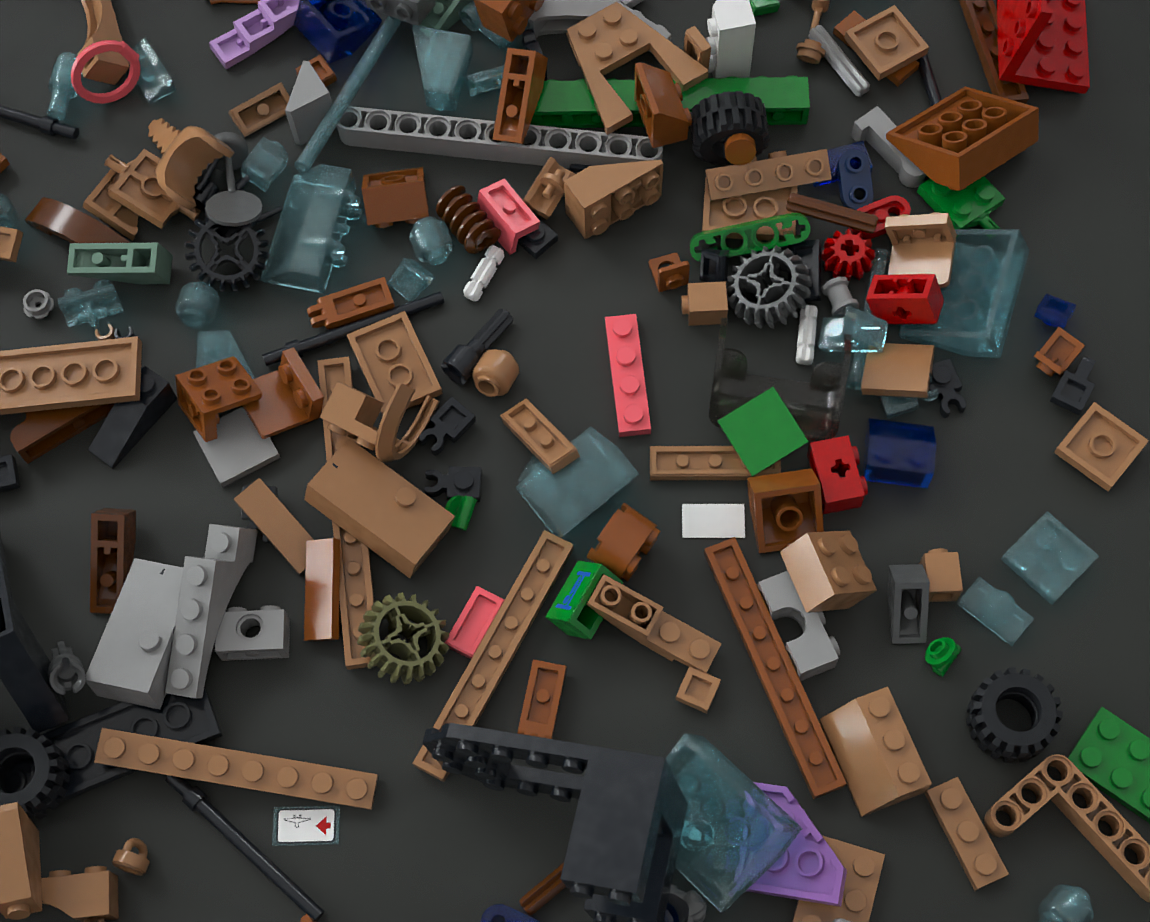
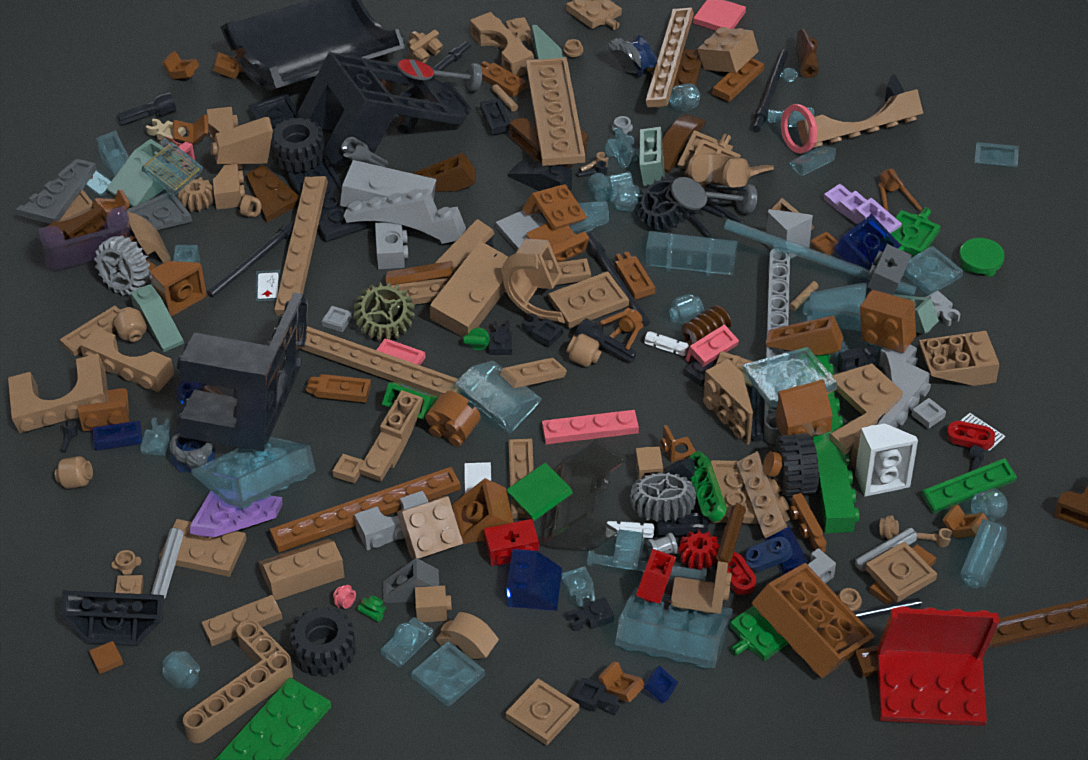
camera: 85 degrees right, 20 degrees down
(98, 827) = (273, 193): none -> reddish brown wing
(166, 329) = (602, 185): none -> clear light blue piece
(265, 163) = (740, 214): clear light blue brick -> none
(393, 715) = (337, 319): none -> light grey tile
(395, 197) = (723, 287): dark orange slope -> none
(403, 102) = (803, 296): none -> medium nougat wheel
(410, 279) = (658, 306): clear light blue slope -> none
(448, 314) = (629, 321): none -> dark orange plant
(593, 117) = (785, 372): none -> clear light blue plate
(807, 133) = (807, 522): none -> dark orange hinge
(898, 371) = (597, 576): medium nougat slope -> none
(915, 103) = (850, 598): none -> medium nougat plate
(926, 692) = (344, 596): none -> coral plate
(995, 533) = (469, 634): none -> medium nougat brick

